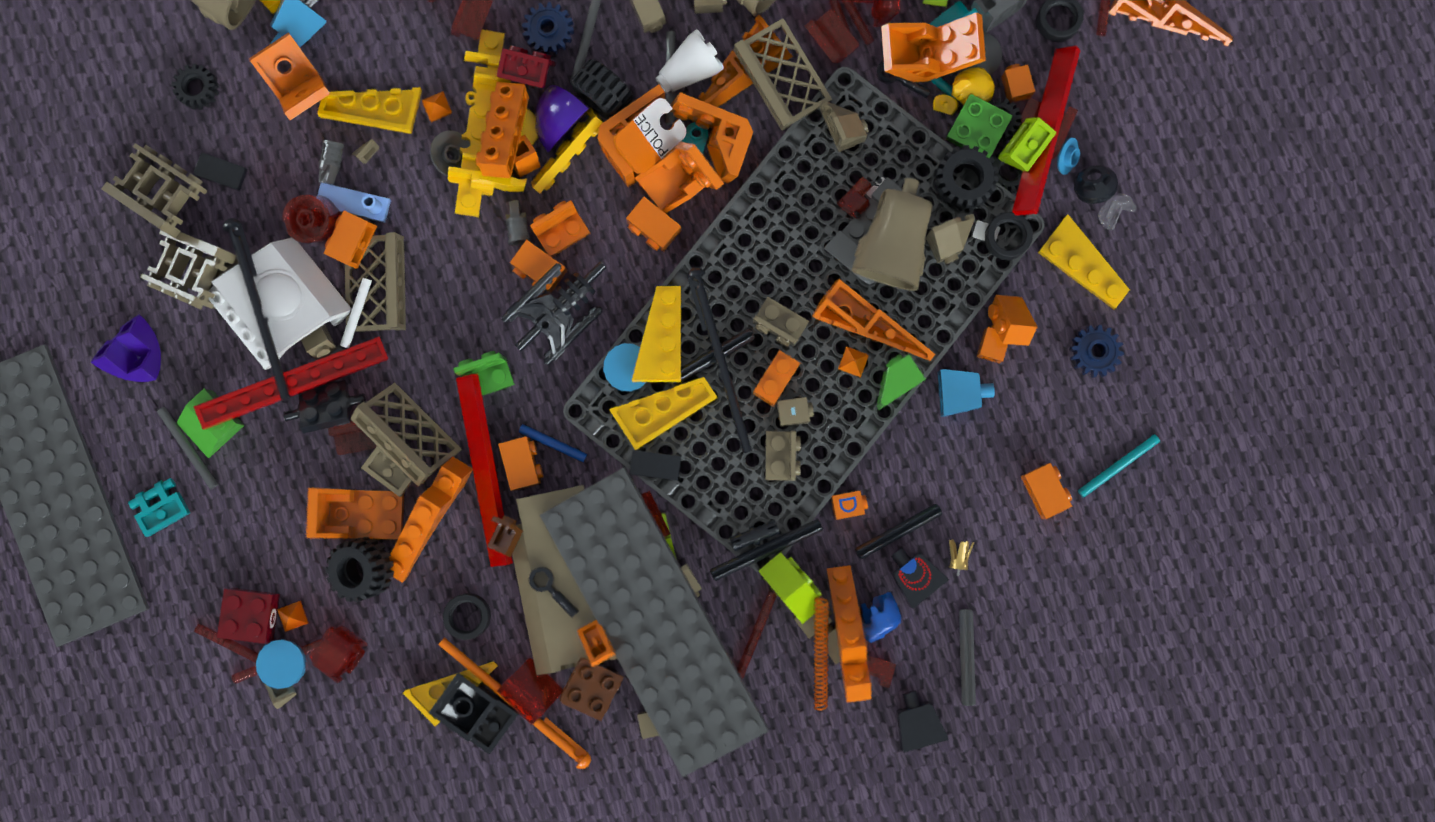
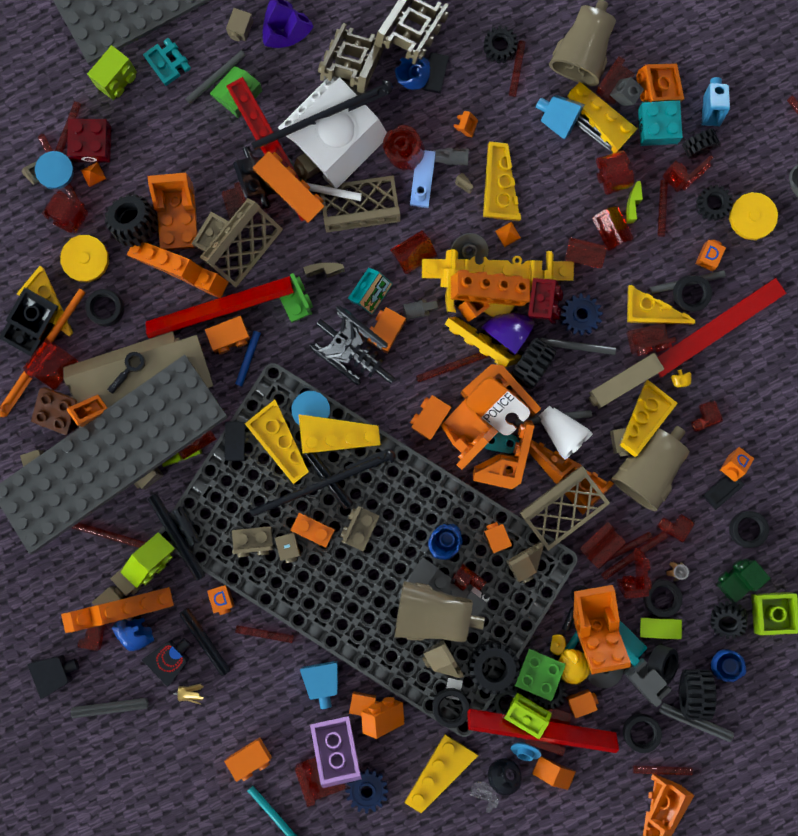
camera: 80 degrees right, 0 degrees up
(124, 409) = (239, 25): none -> dark tan brick
(165, 575) = (112, 73): none -> lime brick
(220, 197) = (412, 75): none -> blue hair
(229, 71) = (517, 68): none -> clear red bar
(290, 138) = (467, 123): none -> orange tile
(295, 88) = (507, 123): orange bracket -> none
(343, 365) = (288, 187): none -> orange brick
(349, 239) = (390, 179): orange brick -> none
(400, 636) = (84, 258): none -> yellow wheel
(442, 222) = (413, 250): none -> clear red panel
(452, 329) = (330, 269): none -> dark tan slope
(485, 282) = (370, 290): none -> panel
(505, 536) = (166, 329): reddish brown bracket -> none
(559, 228) = (418, 344): orange bracket -> none
(593, 194) = (451, 366): none -> clear red bar
(808, 219) = (445, 541): none -> blue hair
(809, 157) = (497, 537): none -> orange brick
(819, 605) = (96, 589): orange piece -> none
(851, 312) = (373, 583): orange wedge -> none
(853, 361) = (334, 591): orange slope -> none
(896, 457) = (264, 634): none -> clear red bar
(898, 379) = (319, 628): bright green slope -> none
(1047, 381) = (335, 752): none -> lavender brick
(1075, 405) = (310, 782): none -> clear red bracket
(1096, 128) = (553, 773): none -> orange slope

